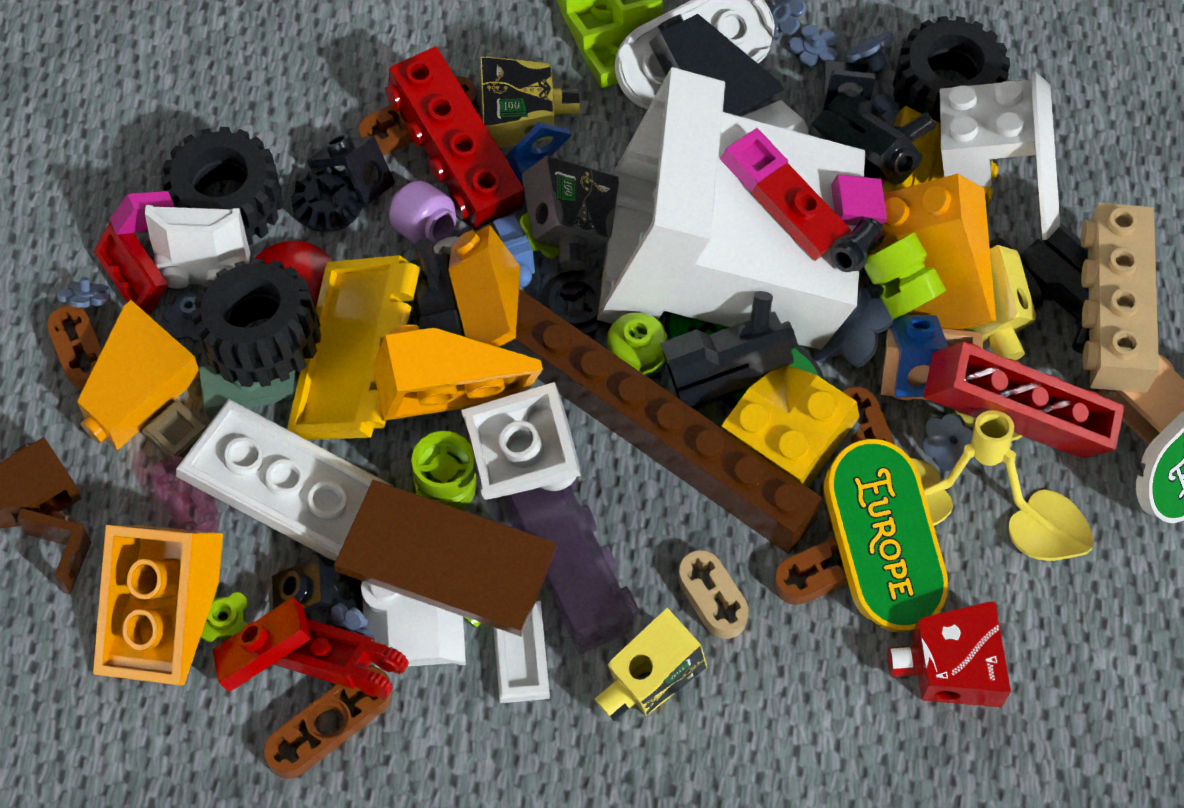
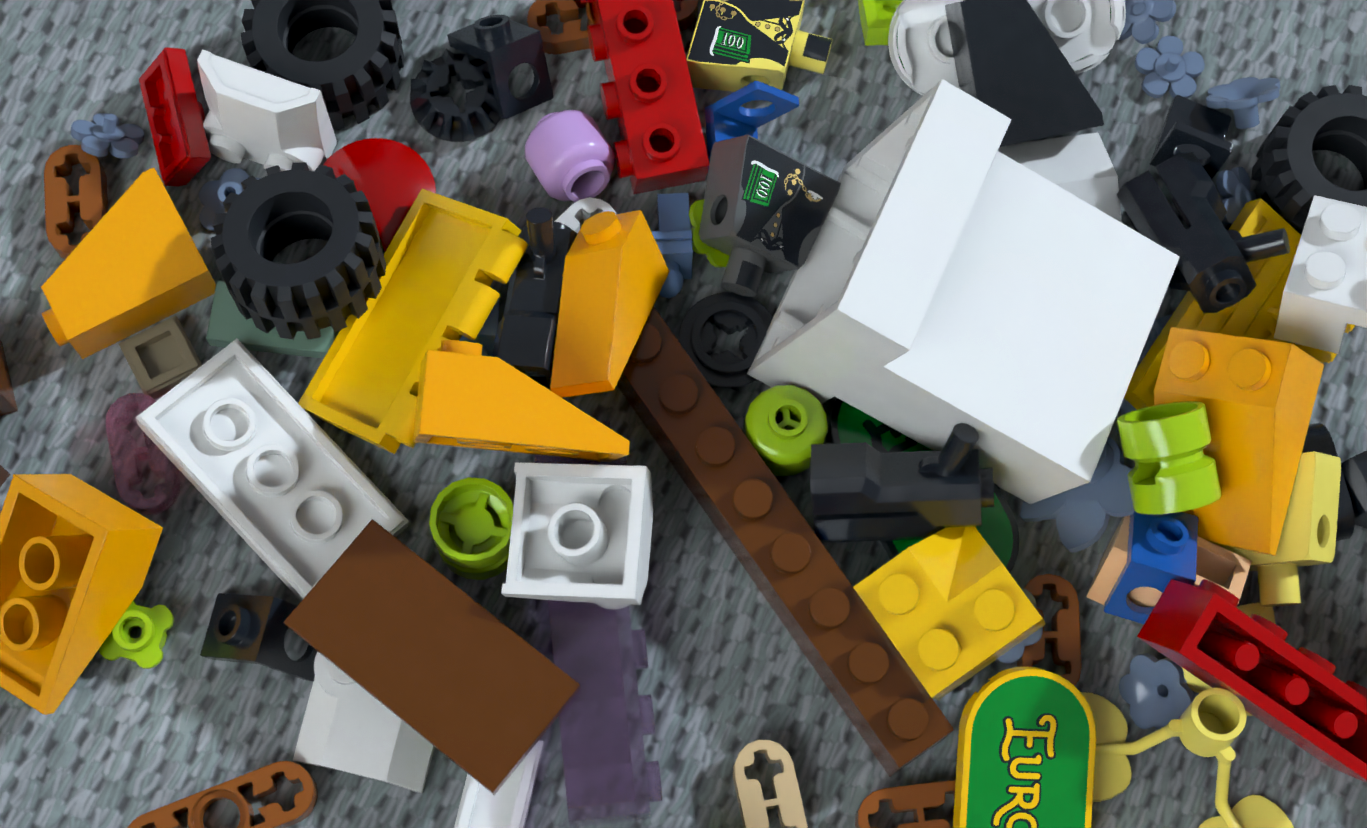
camera: 15 degrees right, 10 degrees up
(131, 212) = (185, 47): dark pink tile -> none
(261, 644) = (165, 691): red plate -> none
(344, 659) = (252, 737): red hinge -> none
(350, 620) = (288, 705): sand blue plant -> none
(753, 158) = (1017, 235): dark pink tile -> none
(800, 211) = (1057, 328): red plate -> none
(851, 251) = (1107, 406): black pin -> none
(858, 199) = (1144, 332): dark pink tile -> none

